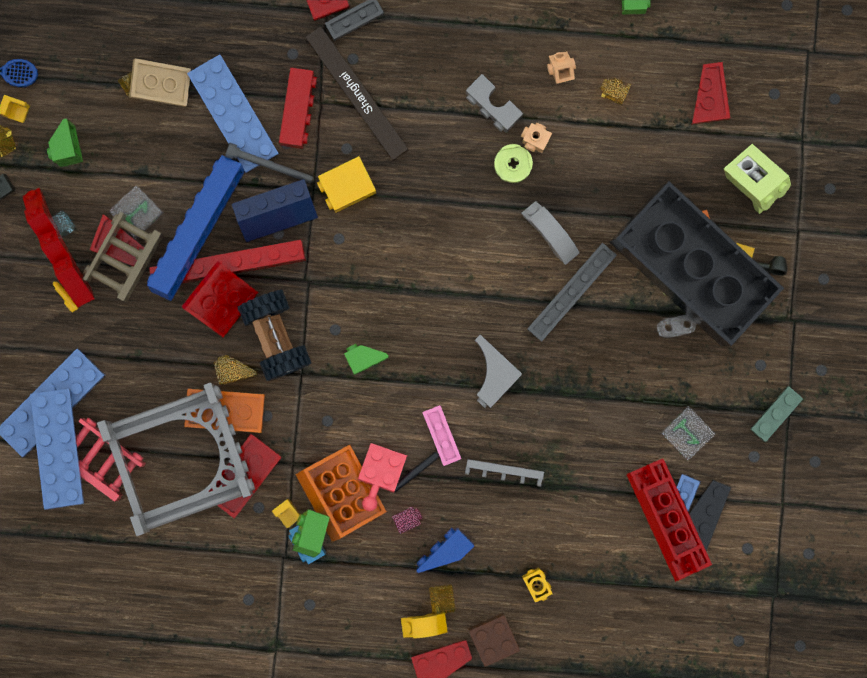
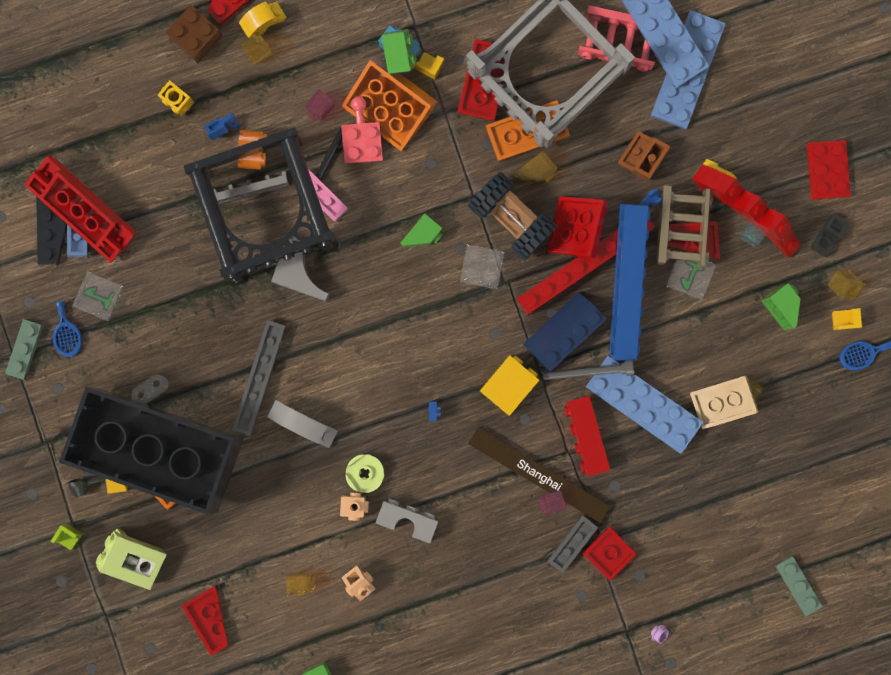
camera: 155 degrees right, 0 degrees up
(128, 339) = (643, 156): none -> dark orange brick
(140, 295) = (652, 198): none -> blue plate
(323, 304) = (482, 267): none -> clear plate
(356, 62) = (551, 502): none -> clear pink panel
(425, 191) = (434, 411): none -> blue plate
(450, 550) = (269, 91): blue slope -> none
(487, 504) = (256, 160): none -> orange brick
(509, 541) = (219, 126): none -> blue plate
(549, 438) = (233, 268): none -> black arch
(727, 432) = (62, 313): none -> blue piece
(806, 225) = (67, 536): none -> lime panel

